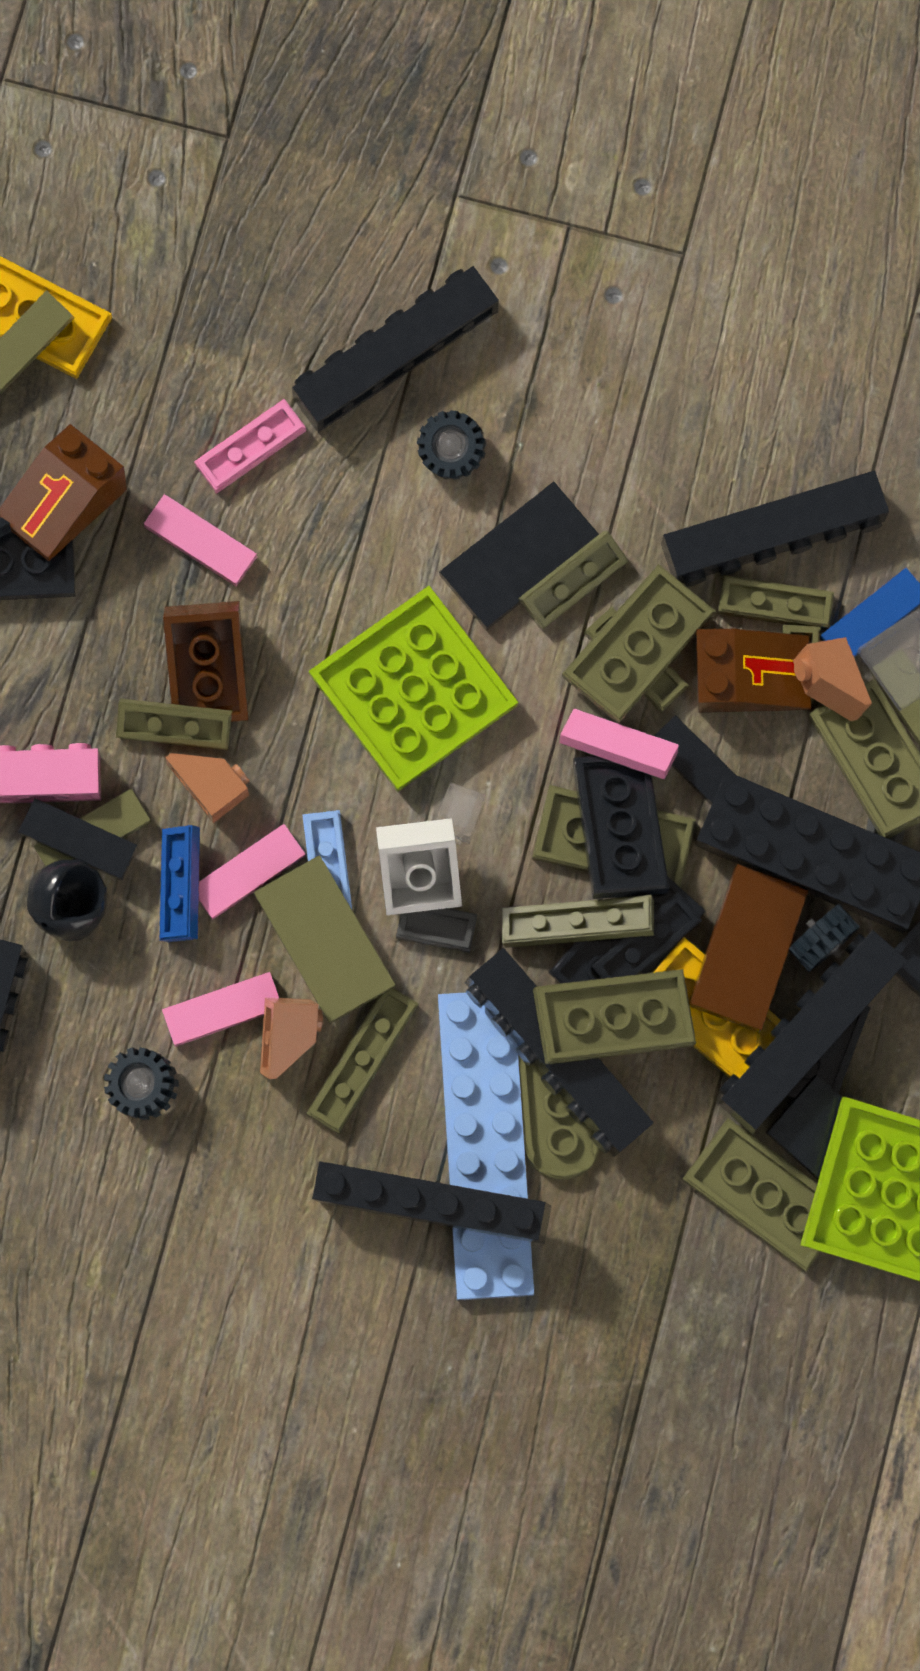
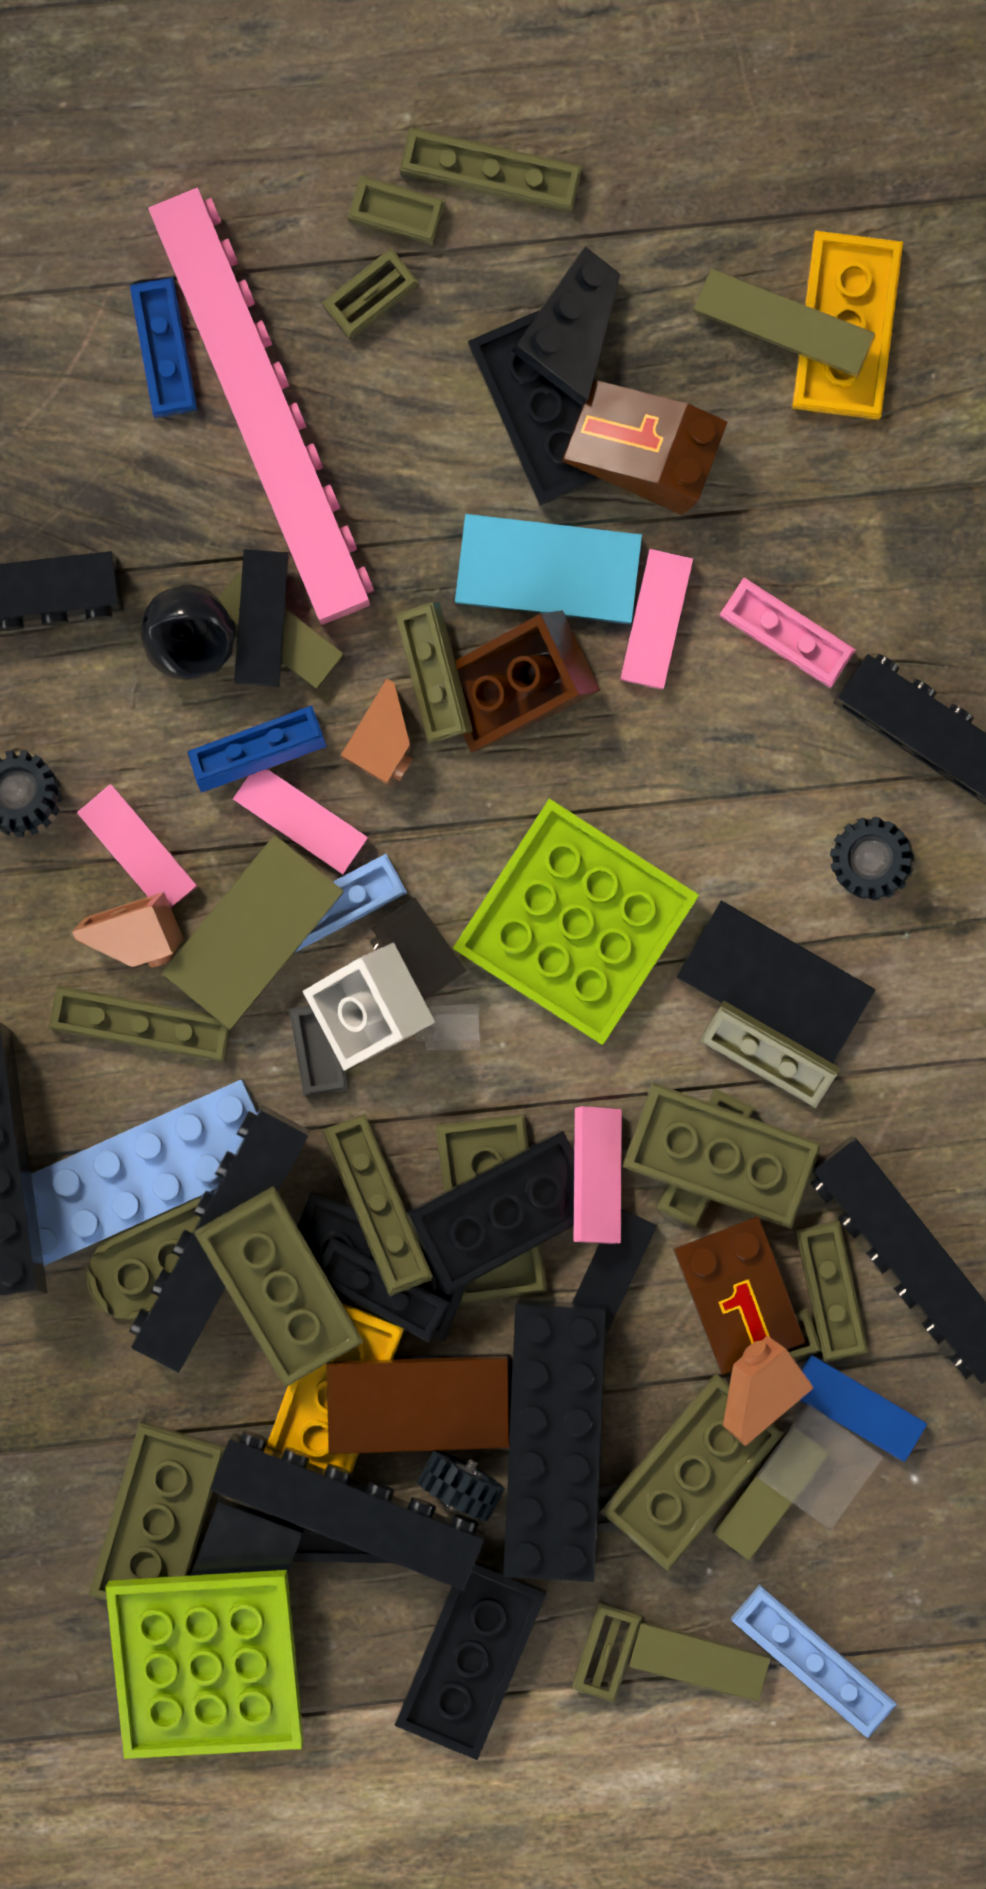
camera: 75 degrees right, 10 degrees up
(127, 607) = (548, 568): none -> medium azure tile
(385, 808) = (420, 946): none -> clear smoke brick

